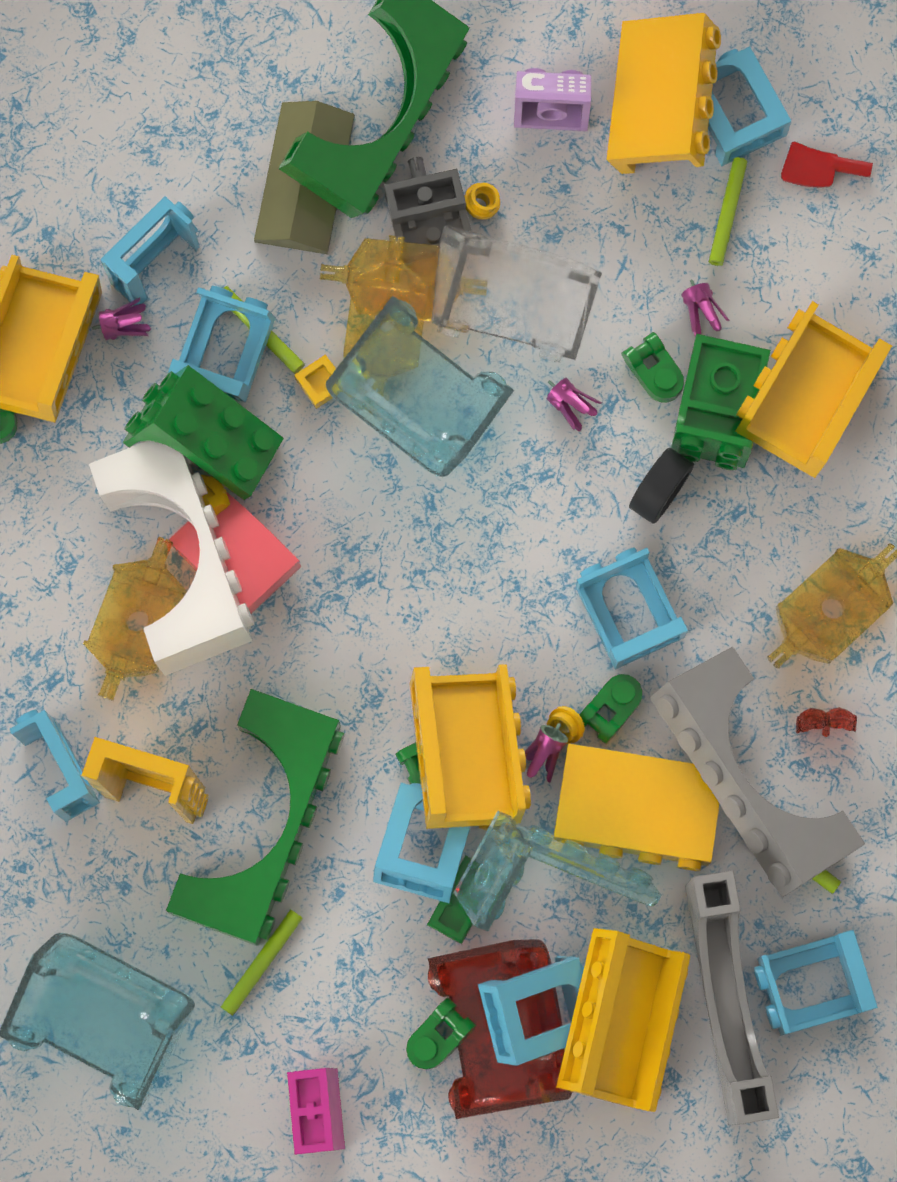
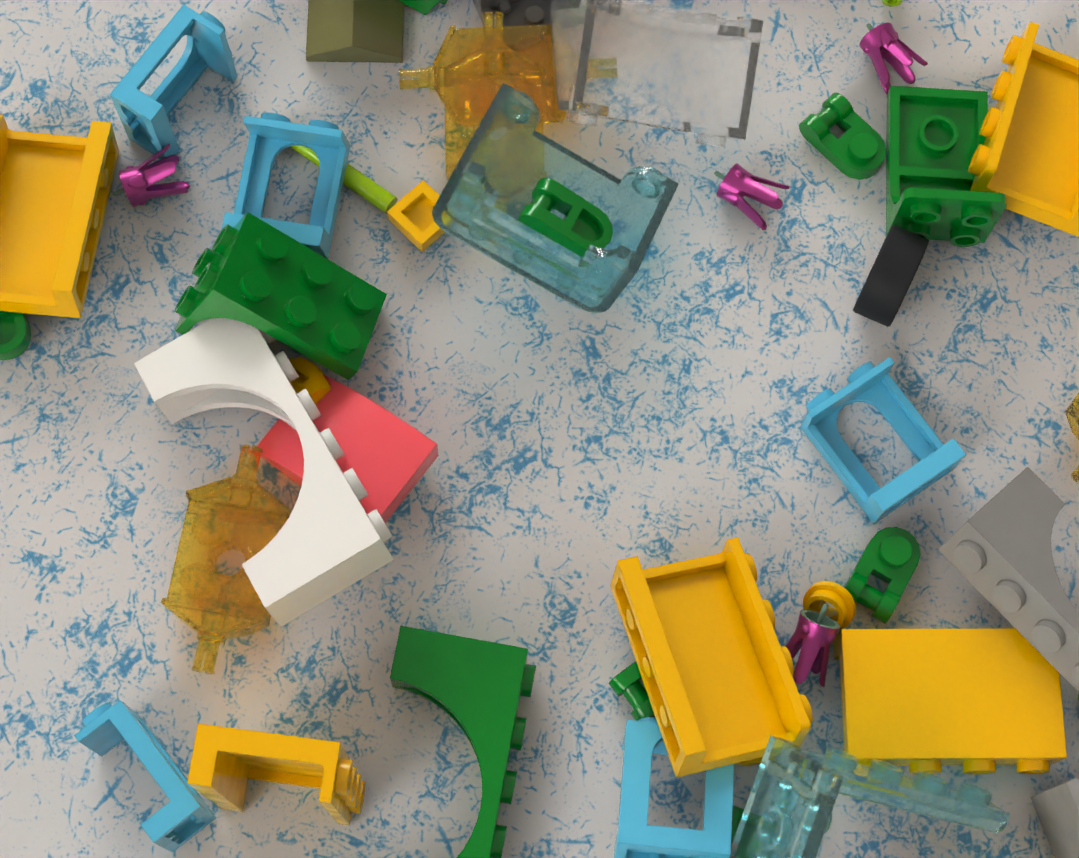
camera: 15 degrees left, 5 degrees down
(437, 410) = (582, 221): none -> green plate

